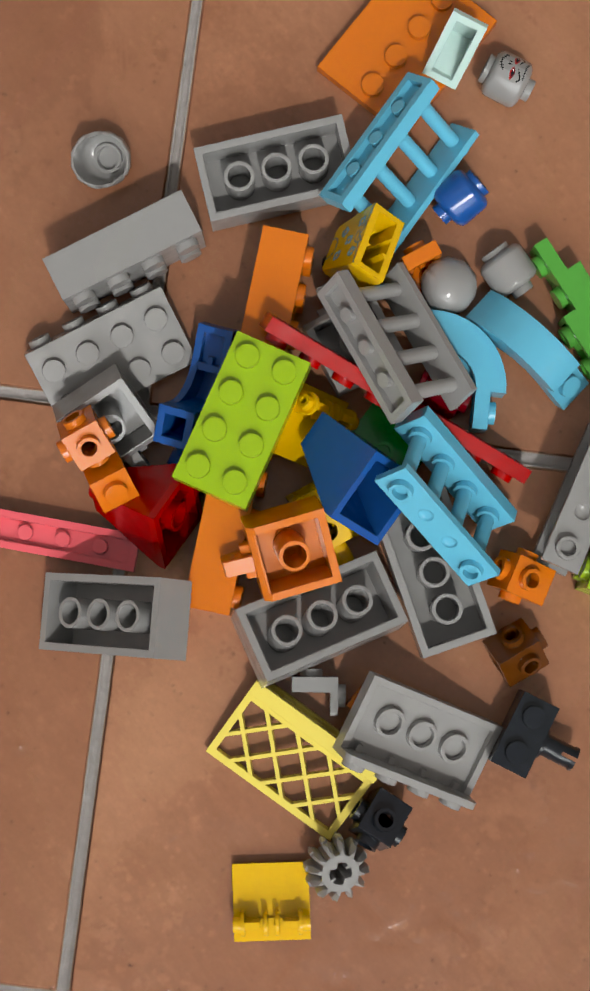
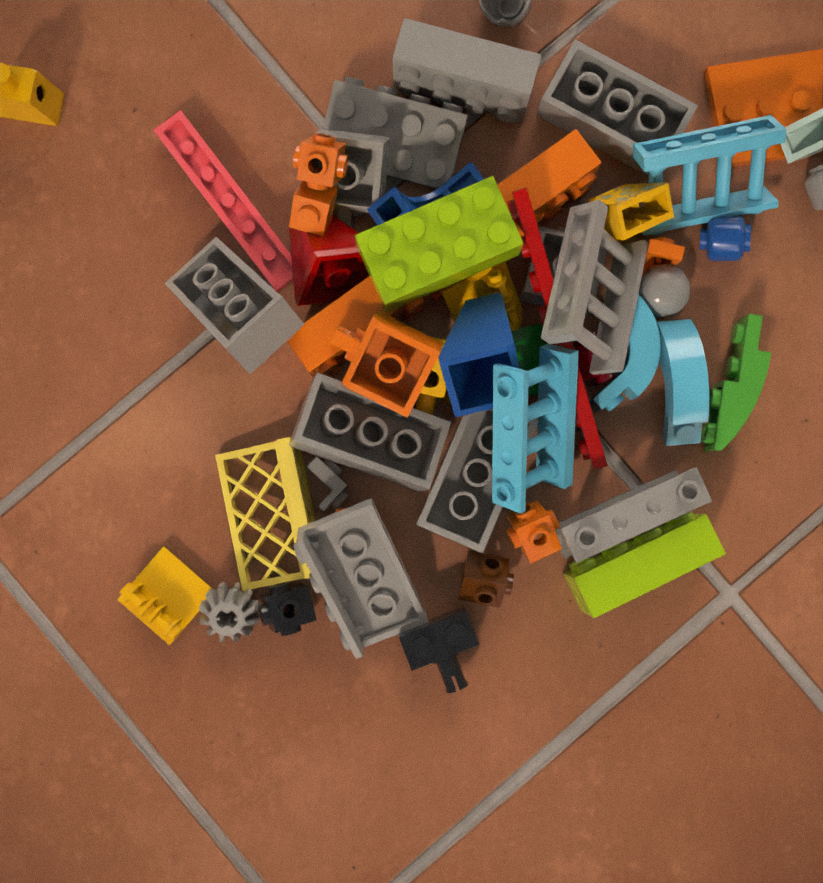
camera: 40 degrees right, 0 degrees up
(508, 270) = (715, 316): light grey head -> none

